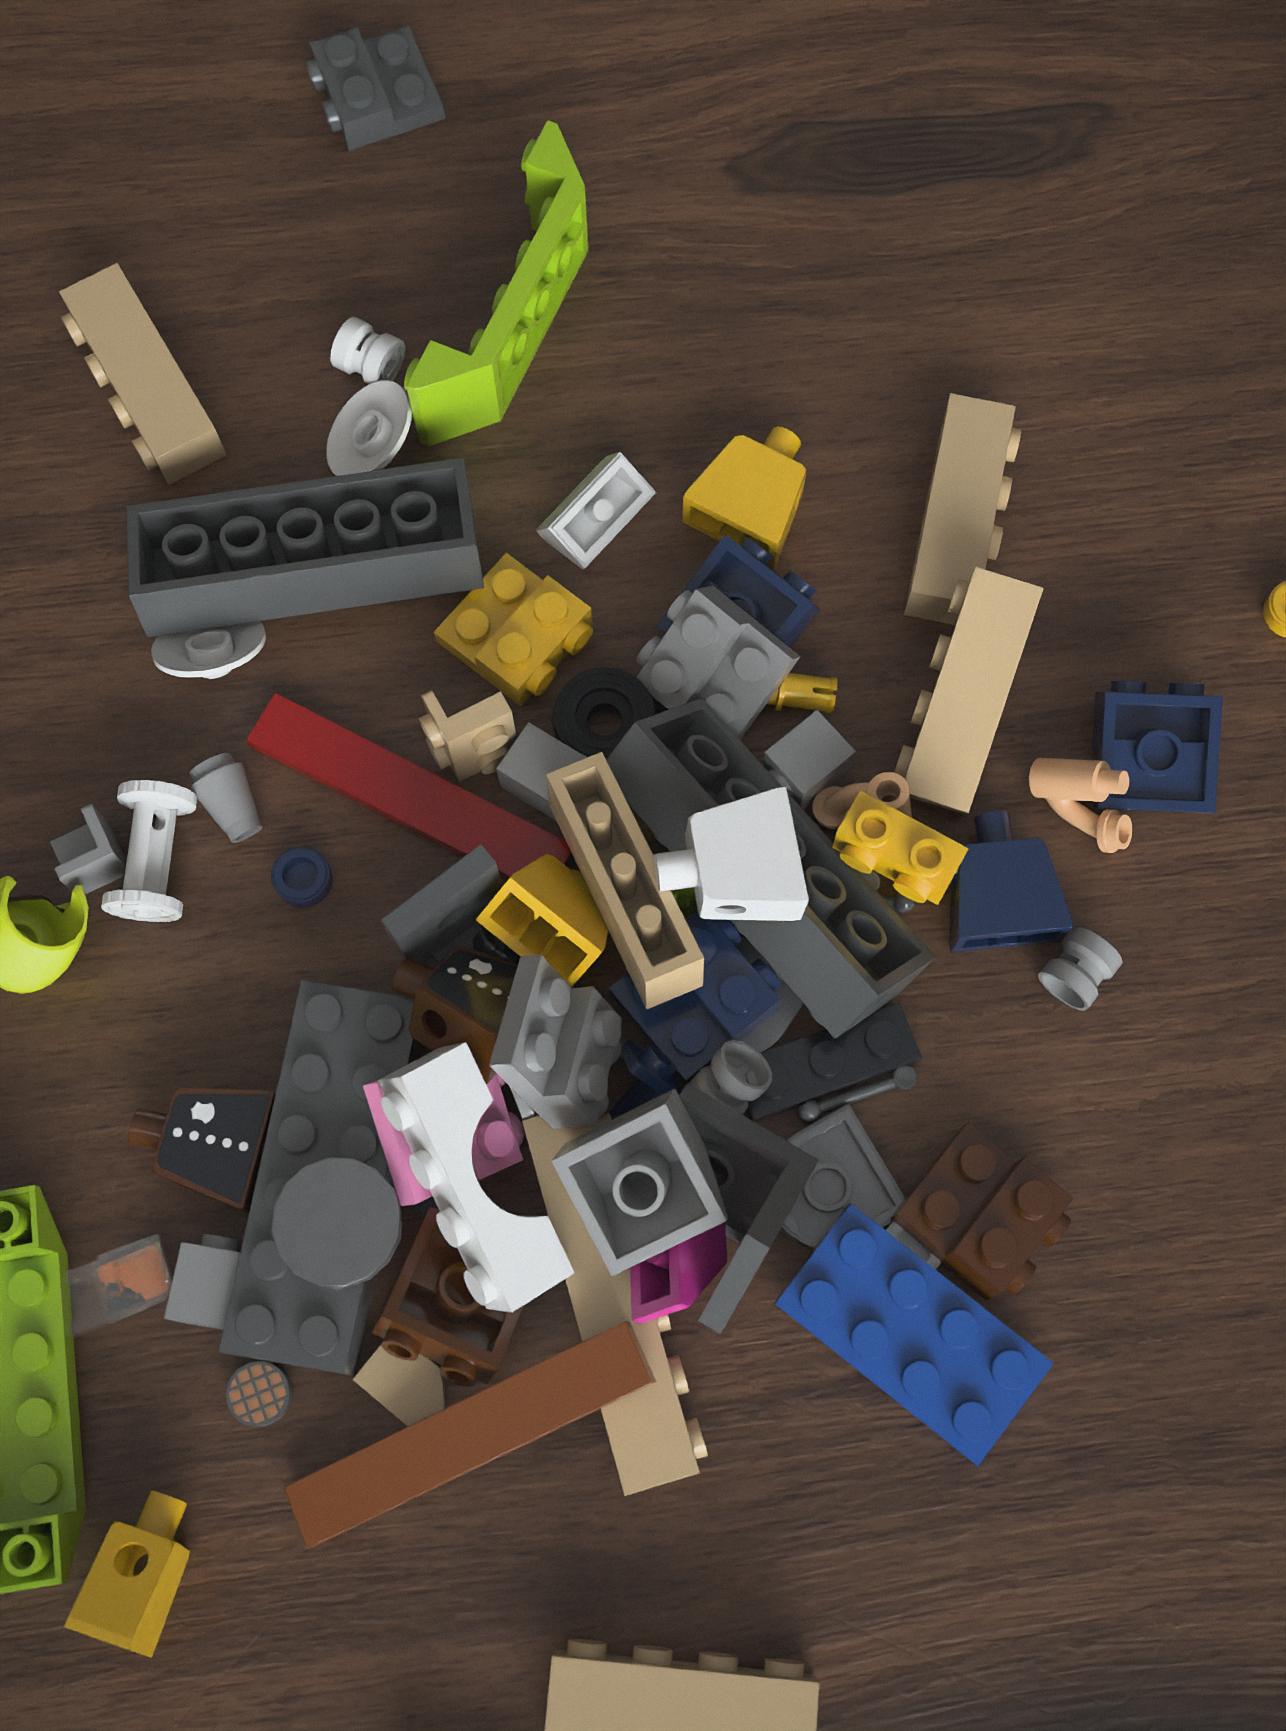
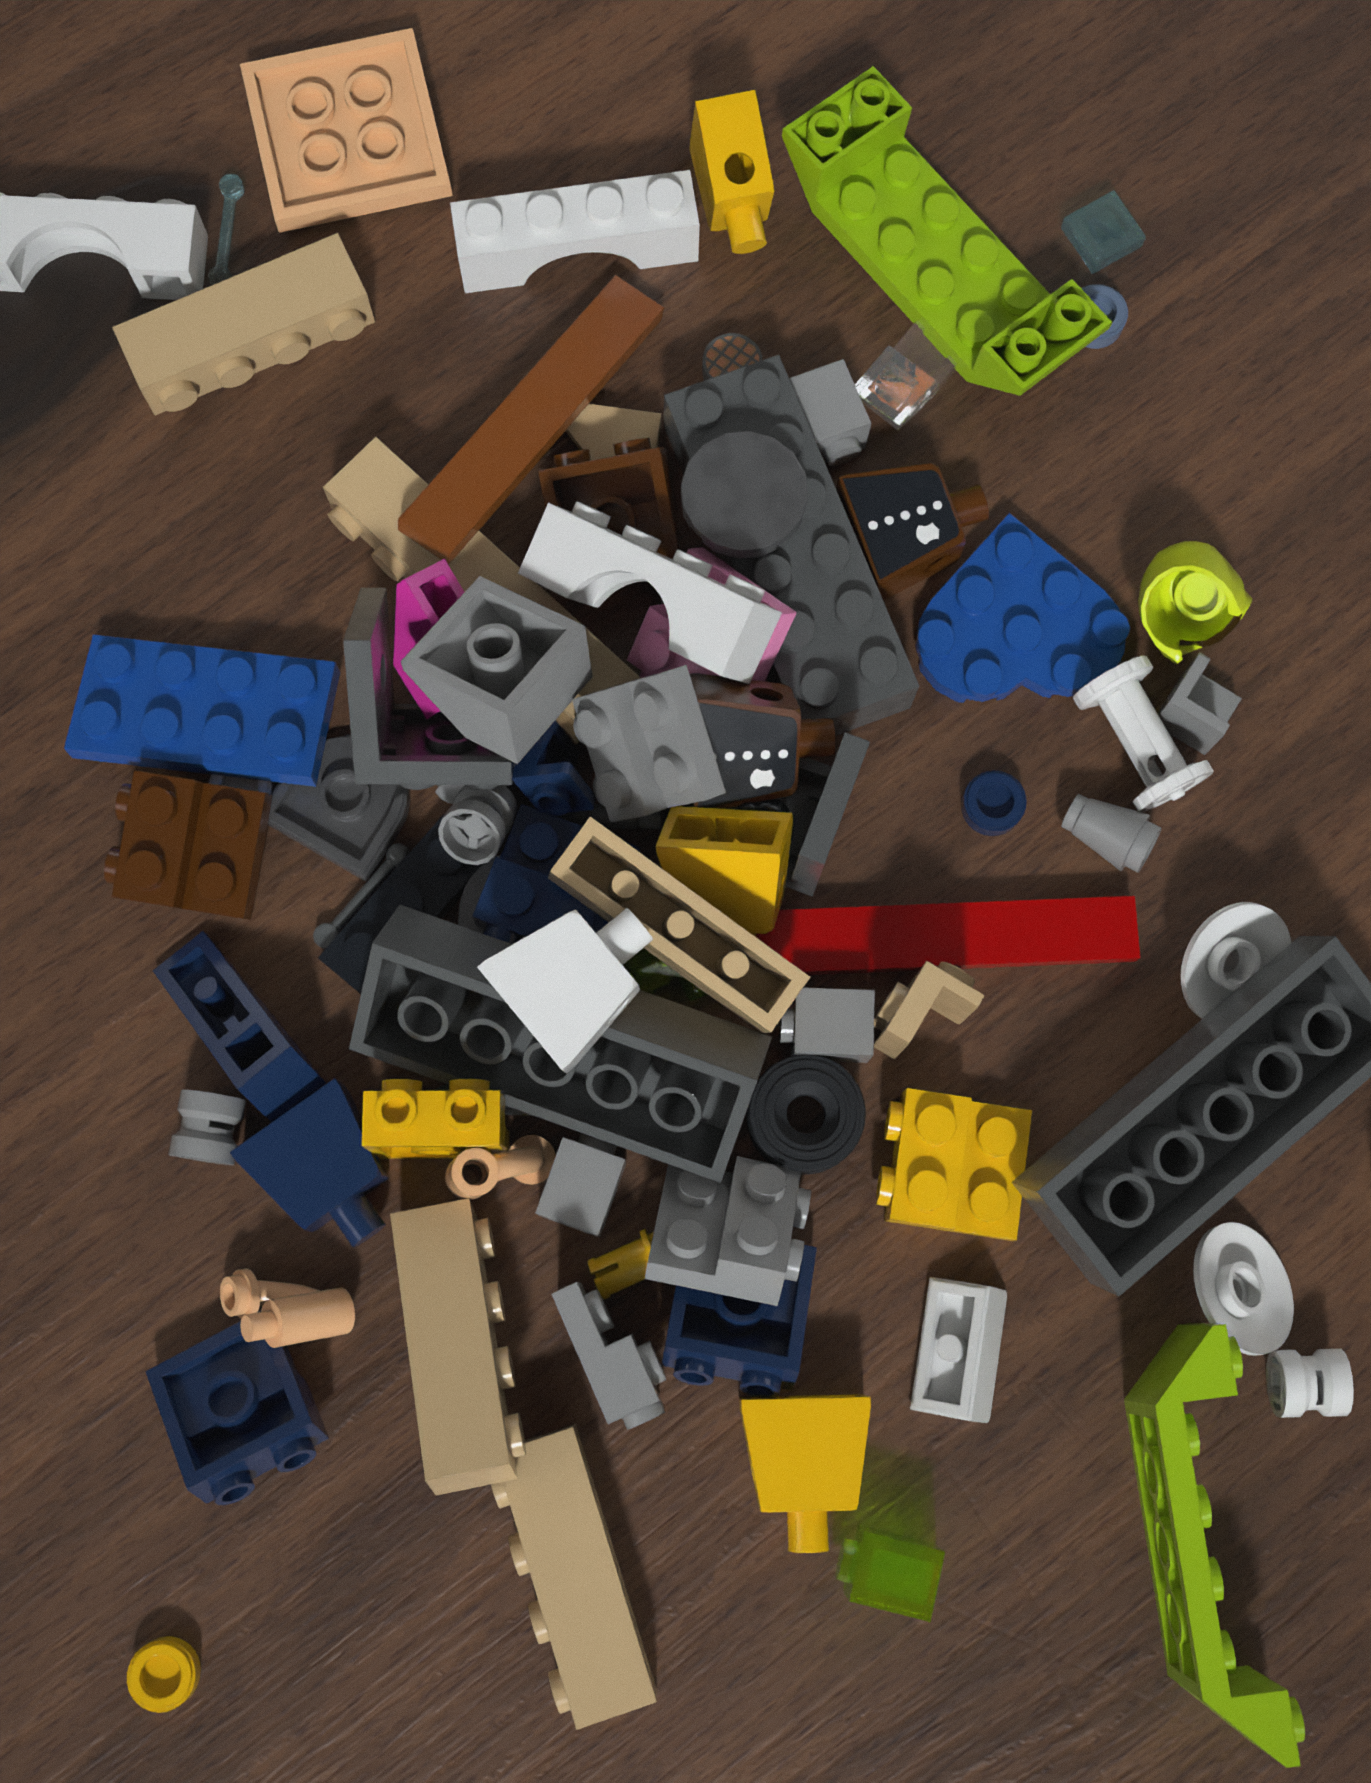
camera: 145 degrees right, 5 degrees up
(175, 1012) = (1017, 621): none -> blue plate
(315, 1616) = (638, 218): none -> white arch
(736, 393) = (890, 1572): none -> clear neon green brick
(854, 620) = (619, 1372): none -> light grey plate
(1017, 1036) = (238, 1028): none -> dark blue slope

